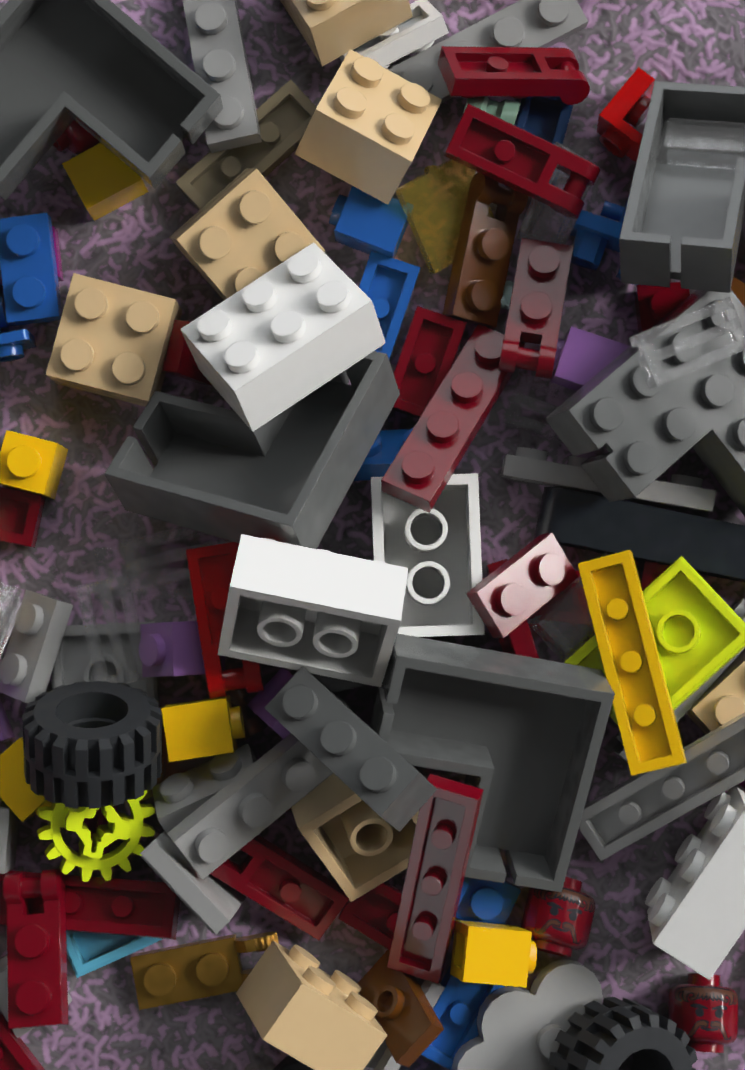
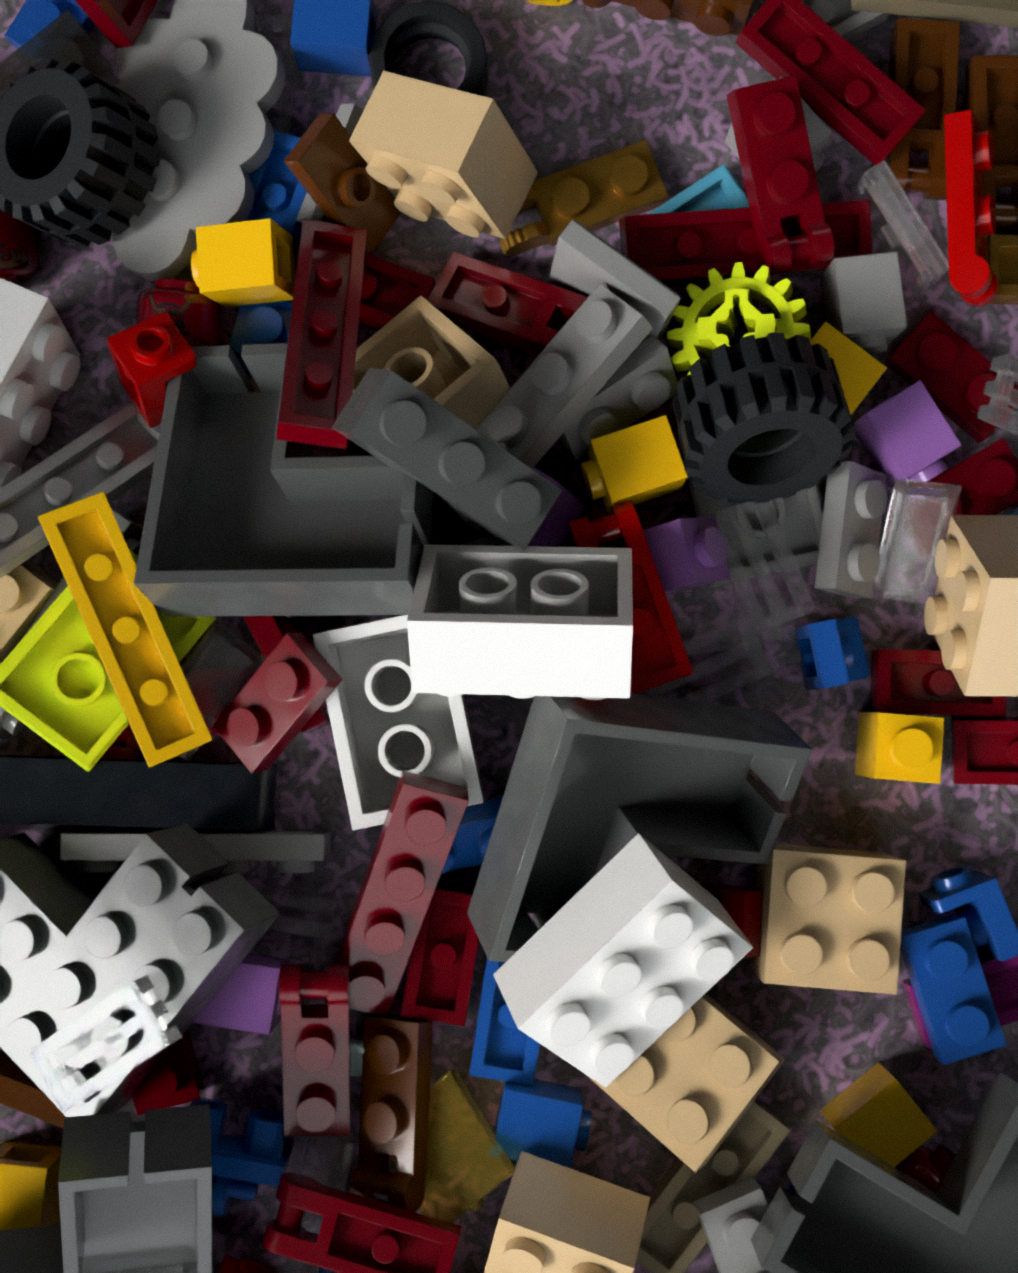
camera: 170 degrees right, 0 degrees up
(68, 549) = (831, 653): none -> blue bracket
(583, 883) = (147, 359): none -> red bracket

